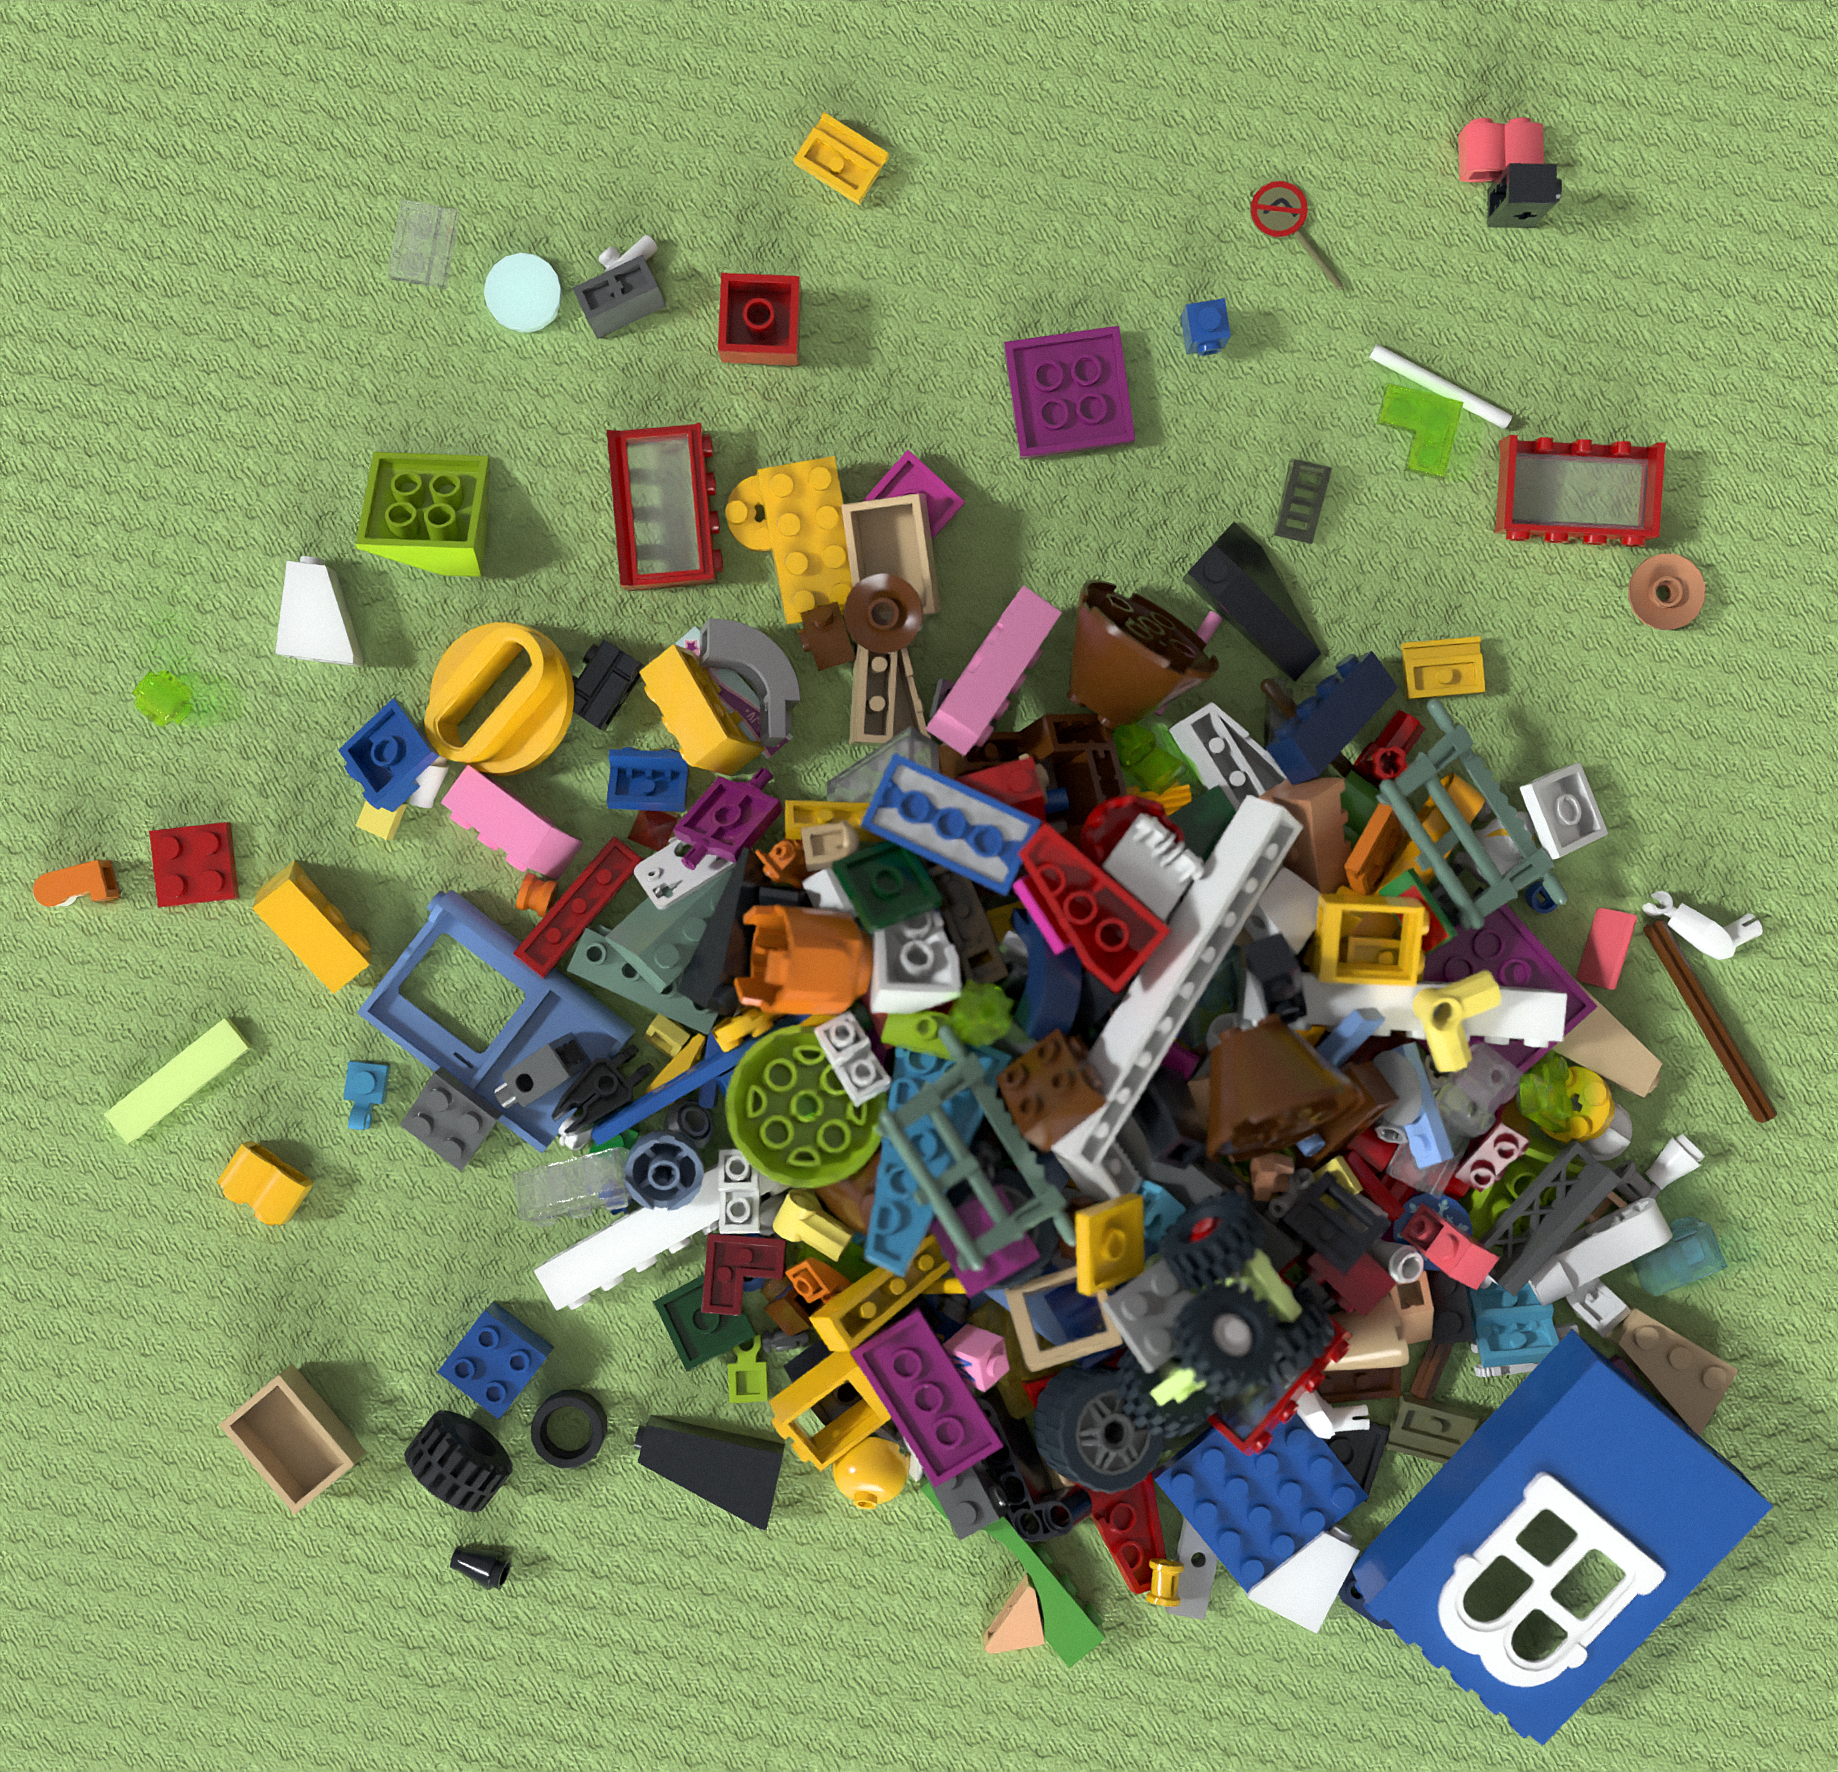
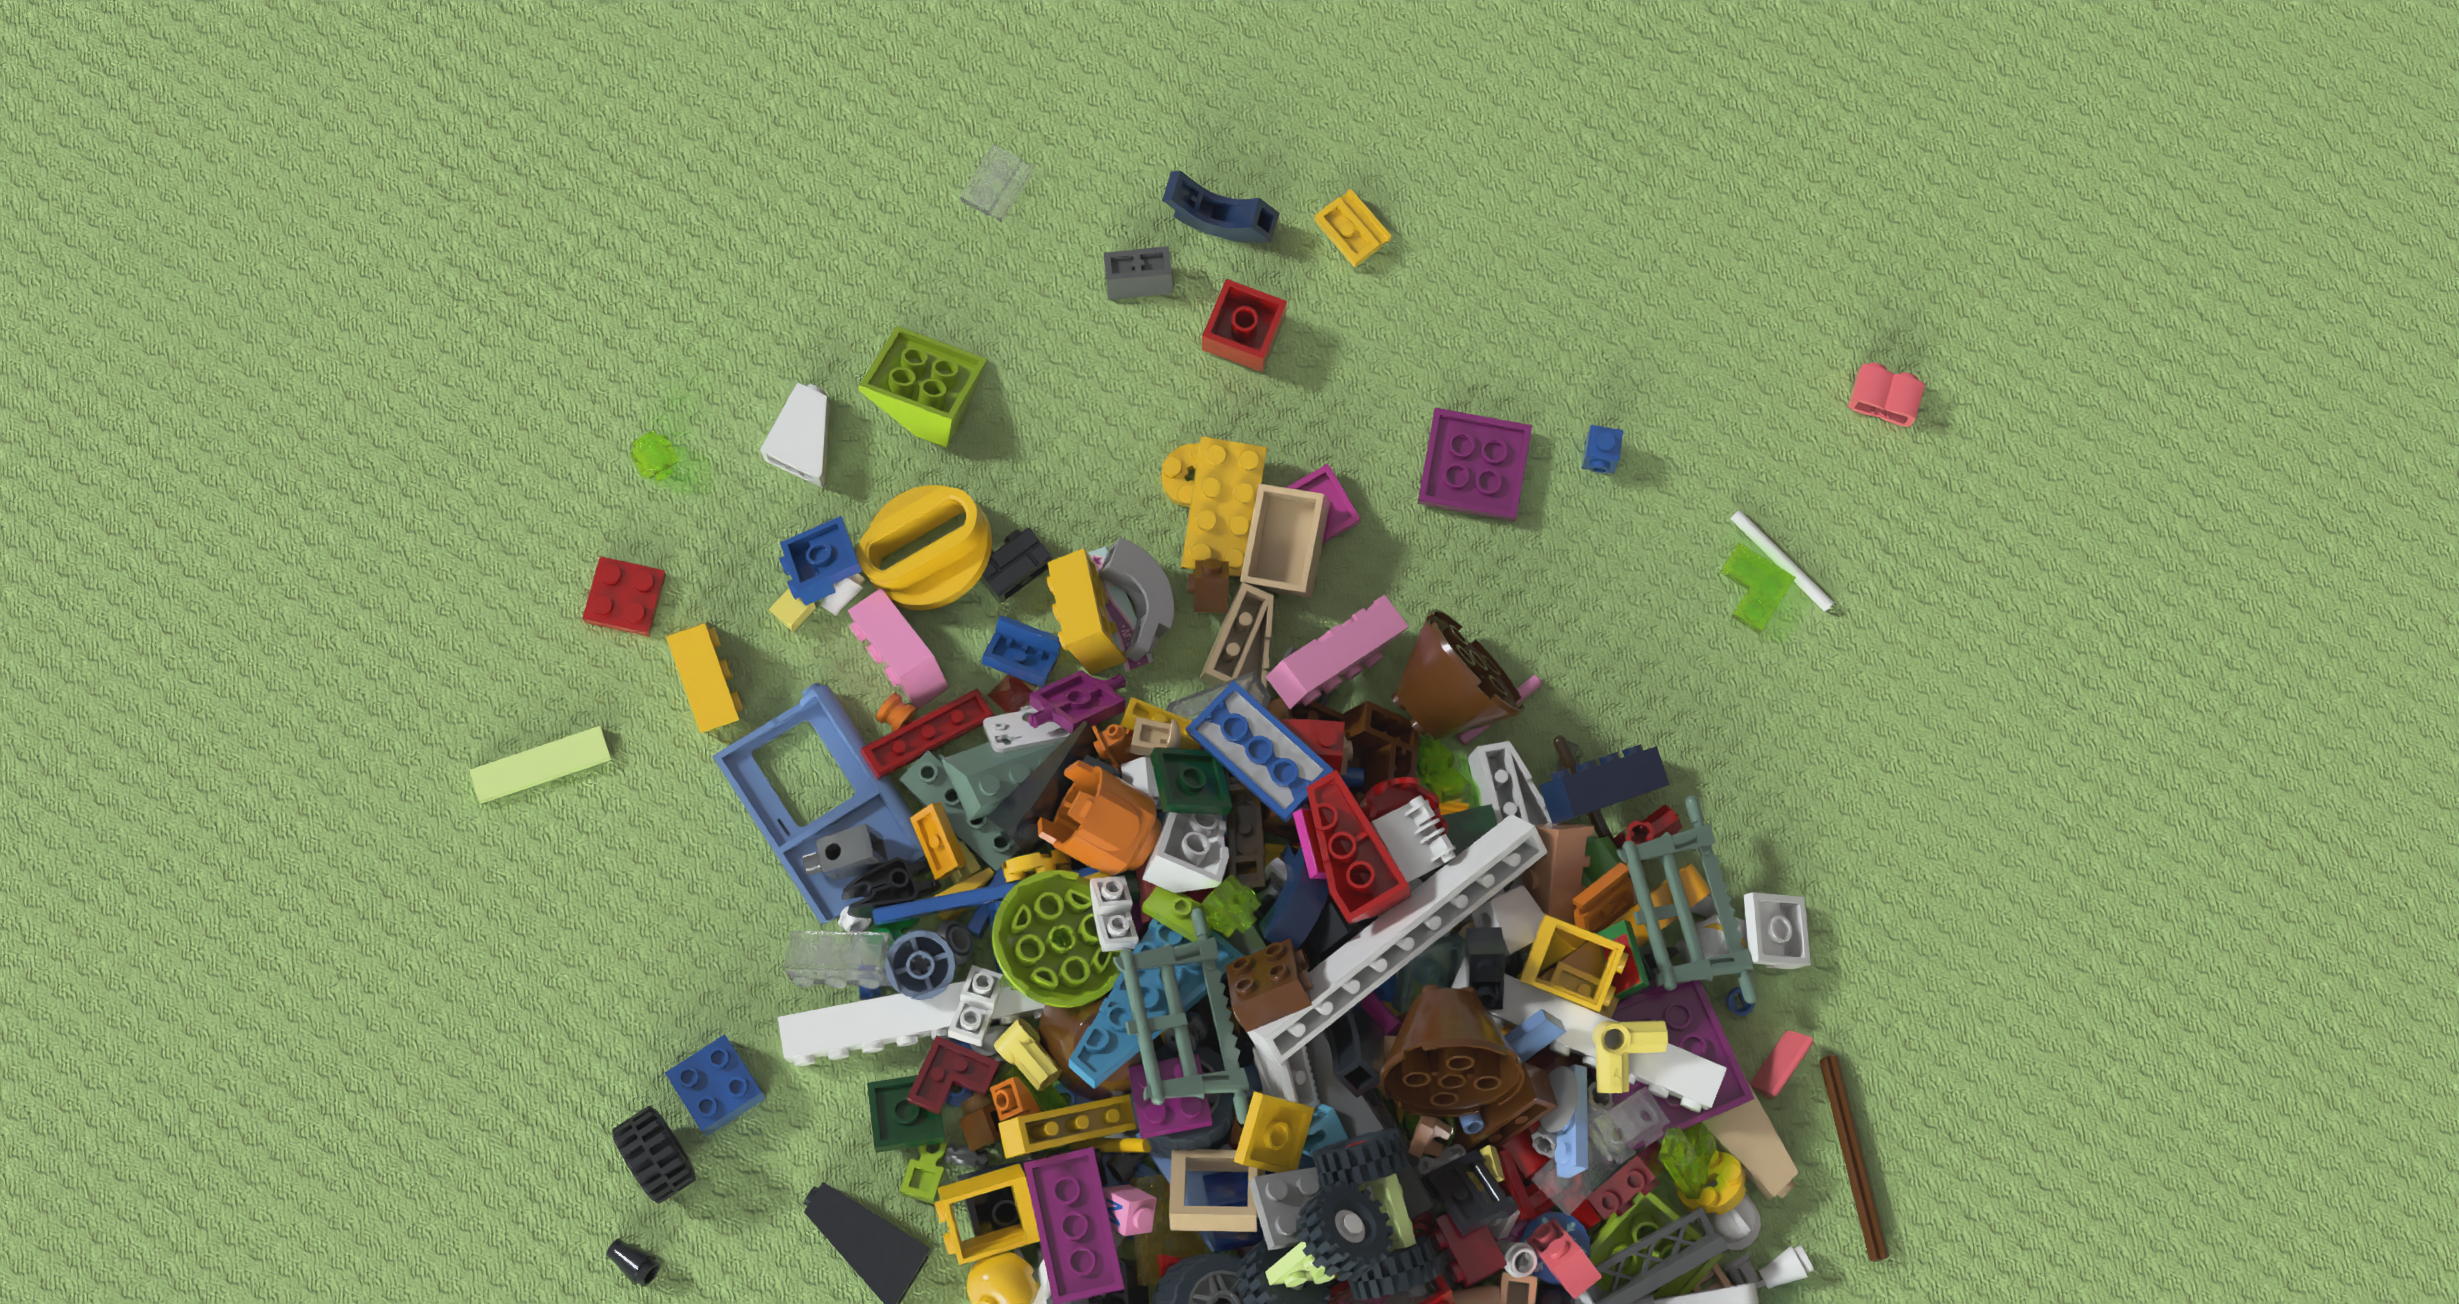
camera: 15 degrees right, 15 degrees down
(67, 884) = (524, 575): orange leg -> none
(264, 1183) = (579, 871): yellow brick -> none
(293, 1439) = (519, 1090): tan piece -> none
(365, 1085) = (692, 822): dark azure plate -> none
(451, 1118) = (755, 870): dark grey plate -> none
(523, 292) = (1062, 245): light aqua tile -> none
(550, 1452) = (734, 1150): black tyre -> none
(611, 258) = (1142, 242): white arm -> none
(633, 1026) = (938, 840): none -> light orange plate
(664, 507) = (1114, 444): window -> none
(685, 196) = (1218, 215): none -> dark blue arch
(863, 615) = (1254, 563): reddish brown dish -> none
(1248, 593) = (1571, 672): black wedge -> none
(1280, 212) = (1694, 383): piece -> none
(1319, 489) = (1654, 589): clear smoke slope -> none
(1442, 668) = (1715, 783): yellow plate -> none
(1523, 195) = (1892, 432): black brick -> none
(1579, 491) = (1870, 680): window -> none
(1683, 587) = (1930, 773): nougat dish -> none
(1703, 932) = (1869, 1076): white arm -> none

